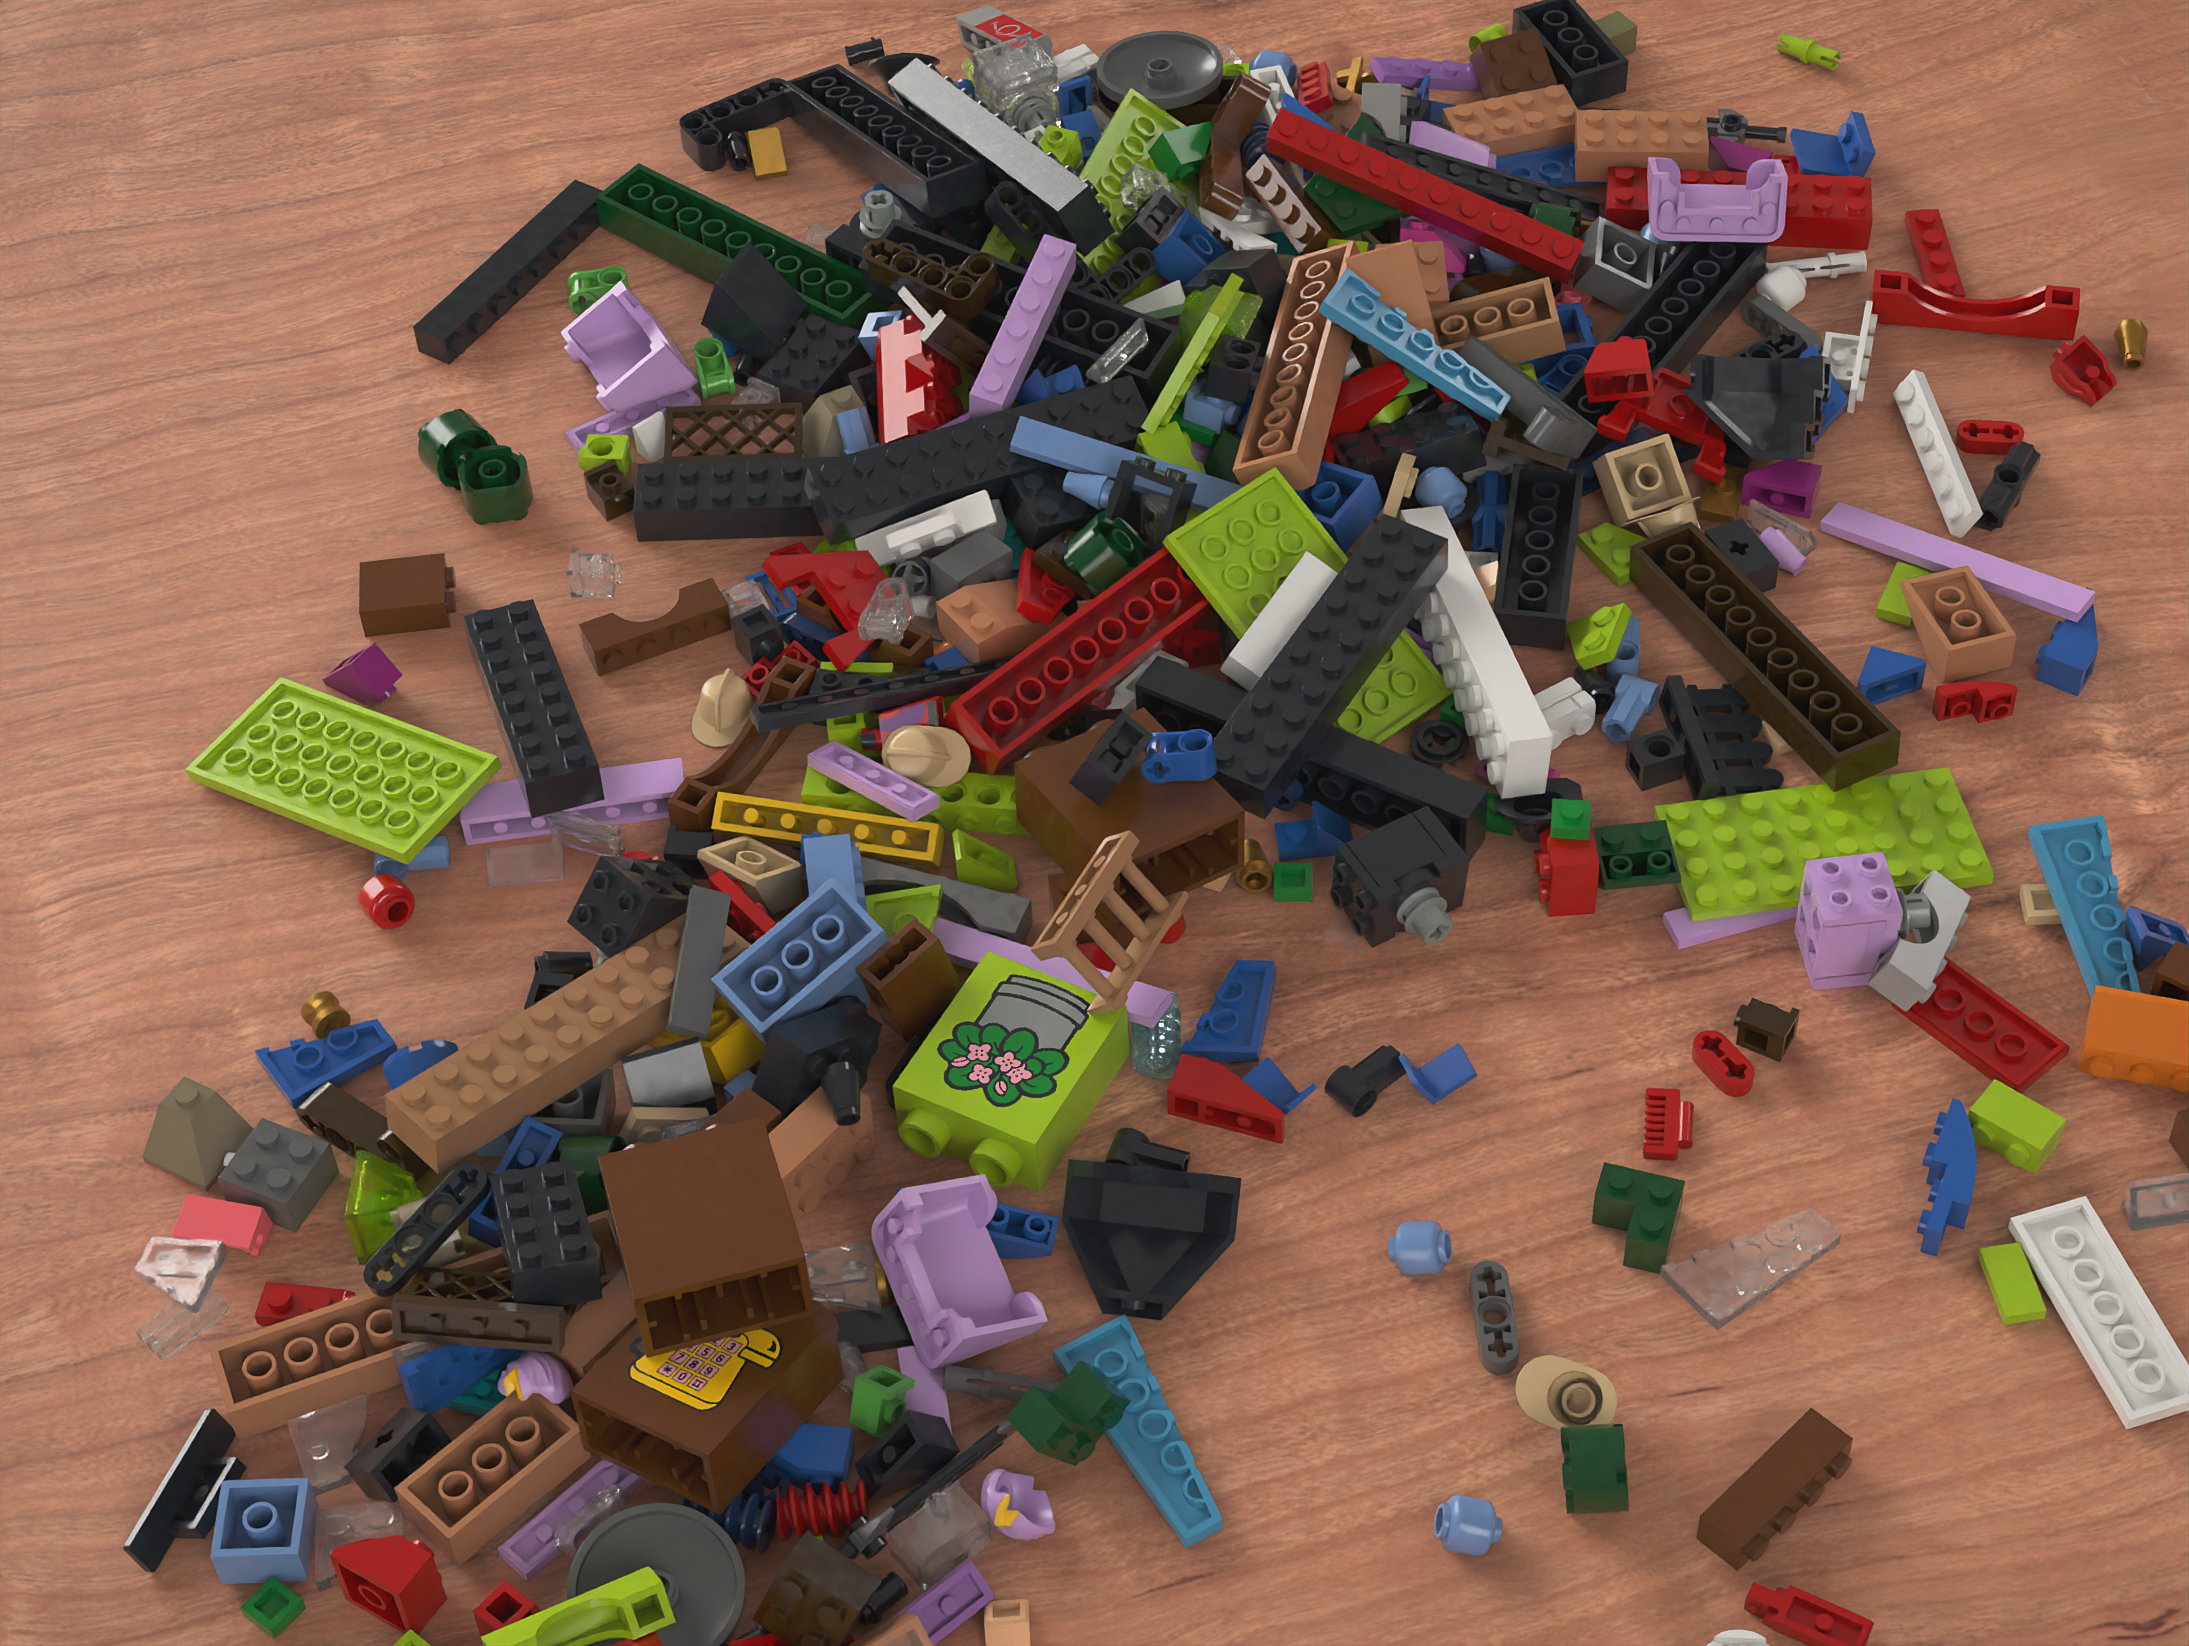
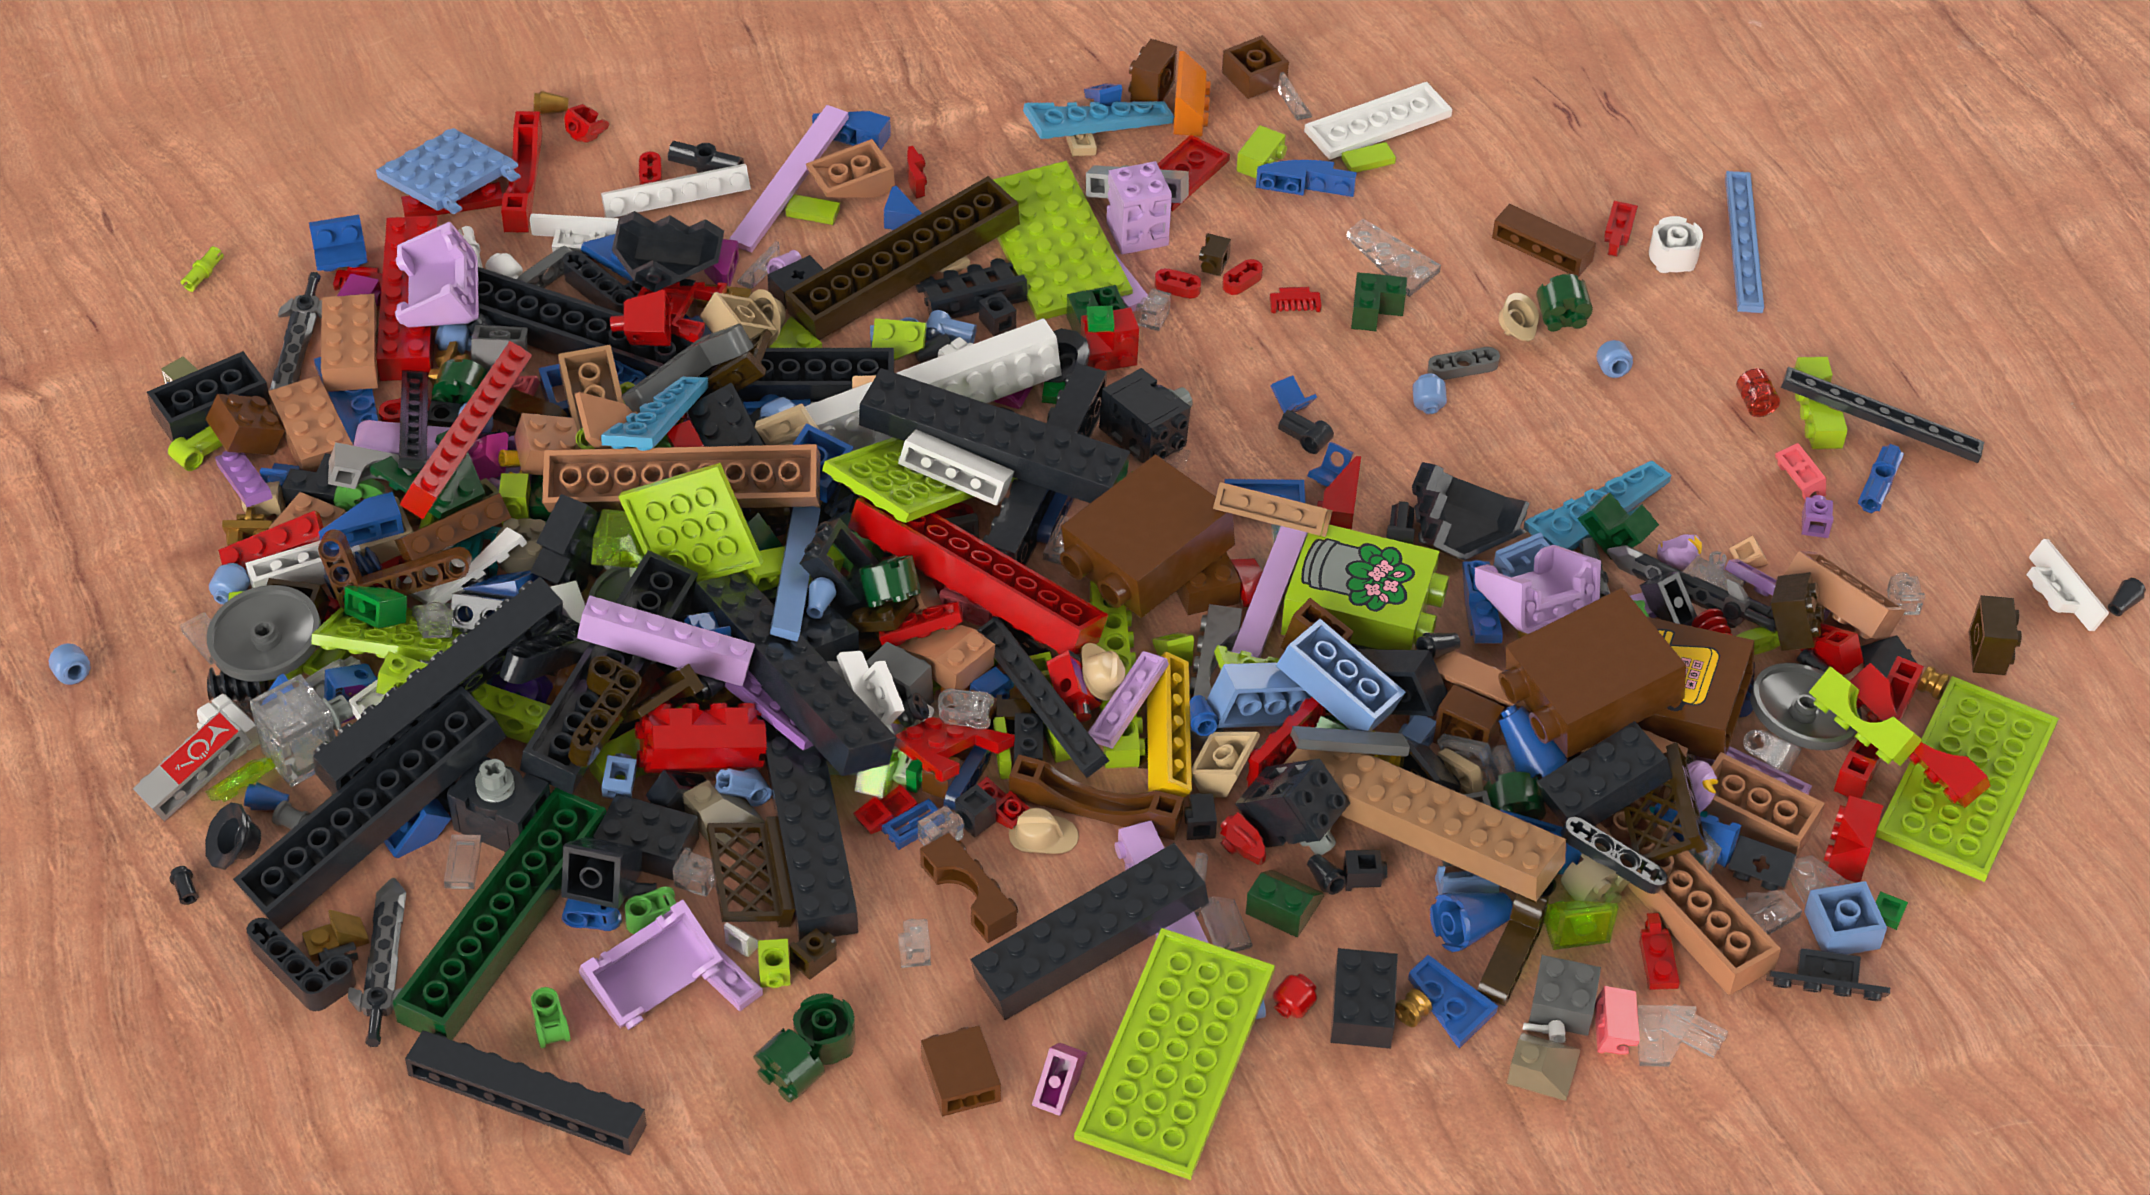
camera: 105 degrees left, 0 degrees up
(359, 962) = (1364, 998): none -> black brick
(532, 913) = (1282, 902): none -> dark green slope
(735, 183) = (382, 961): none -> sword
(1054, 1290) = (1520, 556): none -> medium blue hinge
(1111, 758) = (1143, 504): black brick -> none
(1119, 353) = (679, 584): clear slope -> none
(1182, 756) = (1123, 482): blue piece -> none
(1649, 938) = (1153, 309): none -> clear brick
(1721, 984) = (1178, 283): none -> red beam
(1982, 243) = (447, 170): none -> medium blue plate

